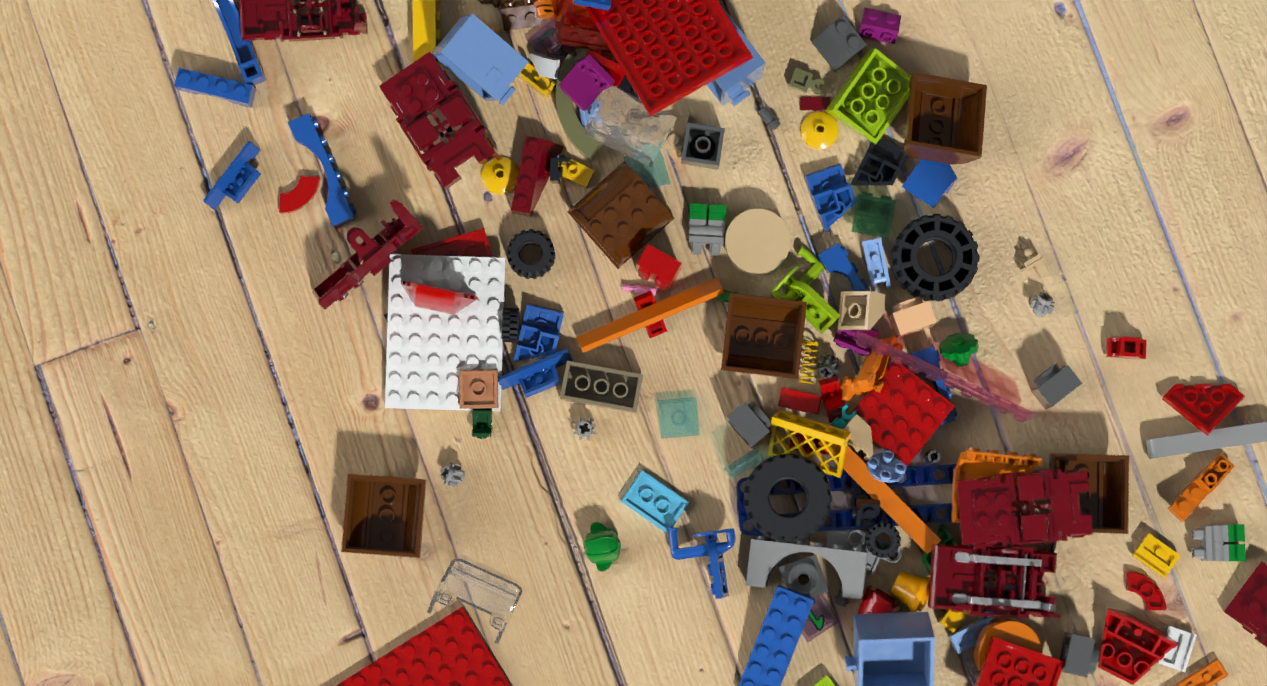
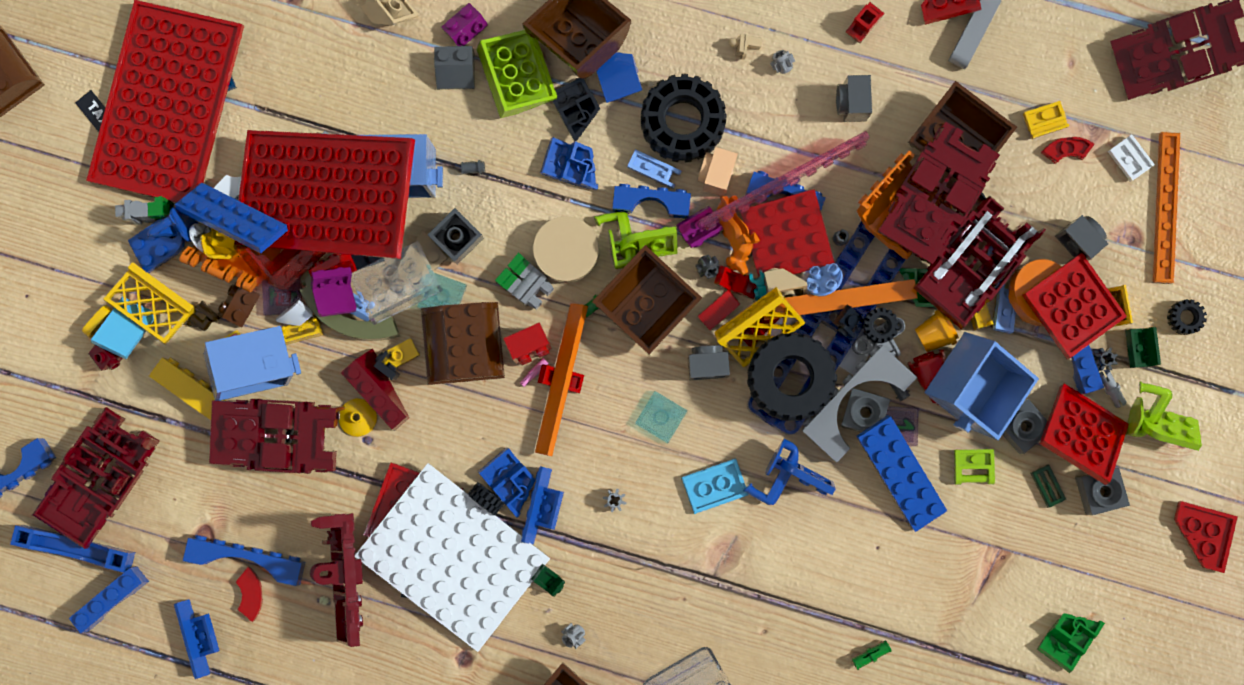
camera: 50 degrees left, 0 degrees up
(436, 298) = (420, 544): wedge -> none
(478, 388) = (519, 563): nougat tile -> none
(519, 242) = (423, 439): black tyre -> none
(601, 387) = (590, 461): dark tan brick -> none
(602, 546) = (720, 555): green piece -> none
(750, 459) = (737, 384): clear light blue plate -> none
(803, 80) = (463, 118): olive plate -> none
(808, 343) = (679, 266): yellow piece -> none
(814, 103) = (488, 123): dark red window -> none
(817, 139) = (516, 143): yellow dish -> none
(860, 309) = (682, 207): tan slope -> none
(873, 215) = (613, 142): clear green plate -> none
(959, 348) = (769, 152): green plant -> none
(1131, 646) = (1105, 190): red wedge -> none
(1200, 487) = (1016, 45): orange slope -> none
(1213, 544) = (1068, 69): light grey hips -> none

